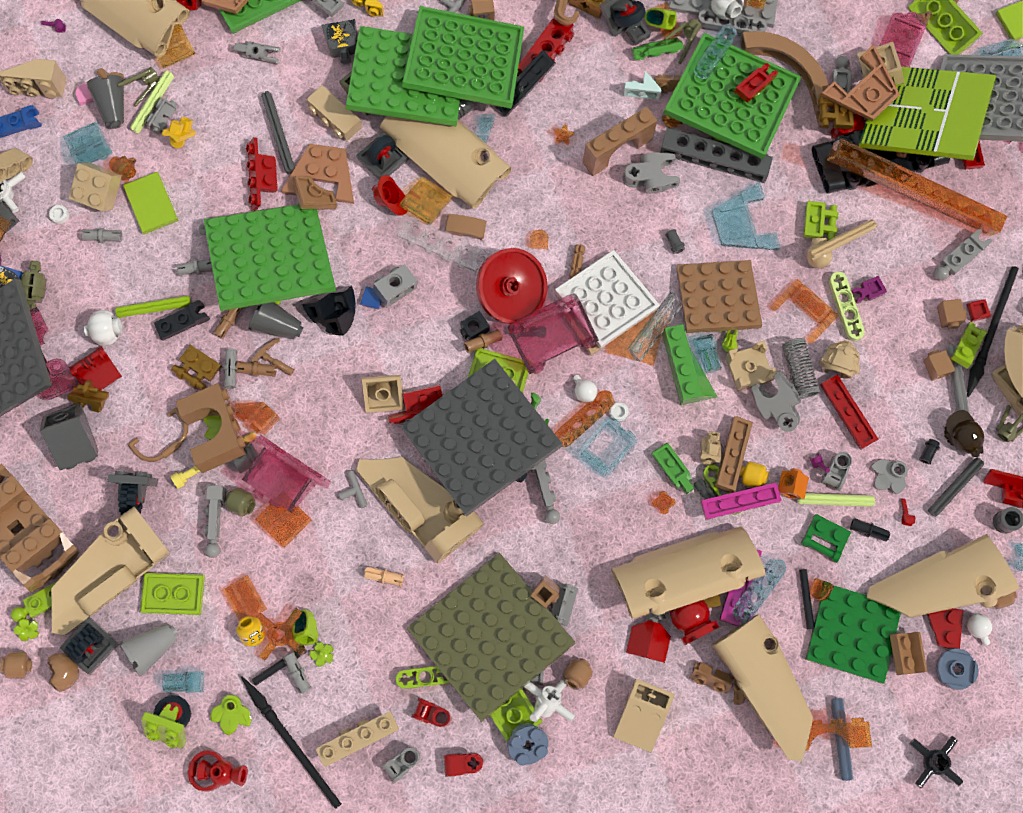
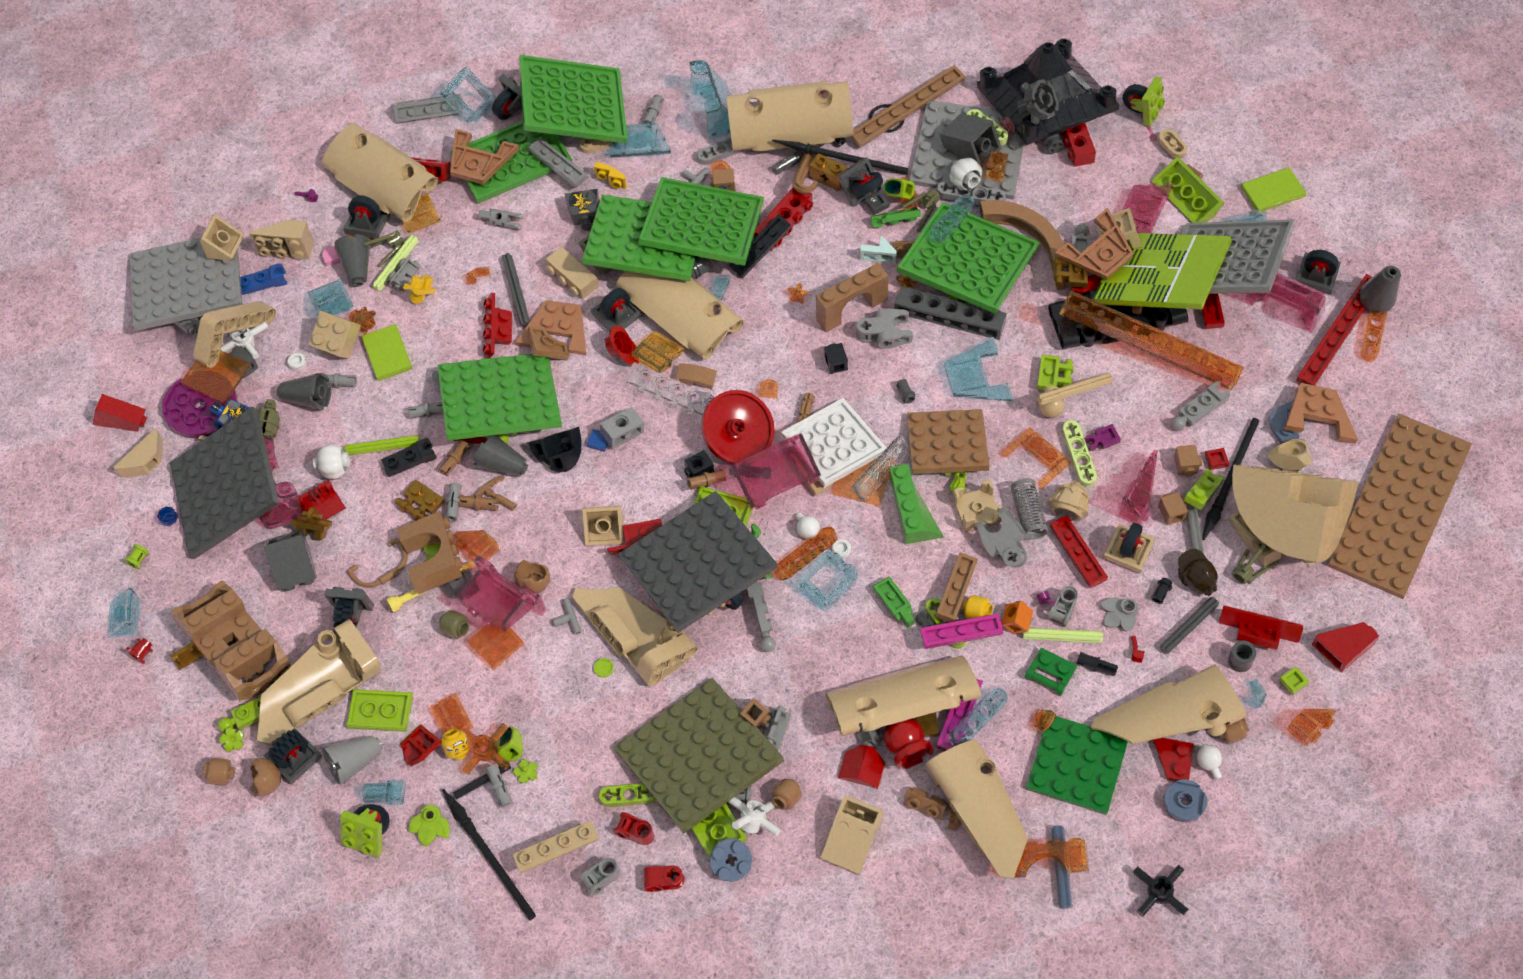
camera: 10 degrees right, 15 degrees down
(71, 249) = (306, 391): none -> dark grey cone
(116, 53) = (365, 217): none -> plate
(215, 631) = (419, 745): none -> red slope
(216, 496) = (430, 620): light grey plate -> none
(220, 773) = (414, 877): red piece -> none
(235, 113) = (477, 272): none -> clear orange arm
(315, 450) = (532, 576): none -> medium nougat hair
(384, 576) = (593, 697): light nougat axle -> none
(391, 543) = (603, 667): none -> lime piece
(604, 206) = (836, 358): none -> black brick
(663, 496) = (883, 628): clear orange plate -> none
(707, 348) = (934, 490): clear light blue piece -> none
(710, 448) = (933, 582): tan hips -> none
(755, 83) = (990, 245): red hinge -> none
(806, 599) = (1029, 730): black bar -> none
(898, 407) = (1129, 547): none -> tan plate
(907, 354) = (1138, 496): none -> clear pink wedge
(908, 653) = (1132, 783): medium nougat bracket -> none

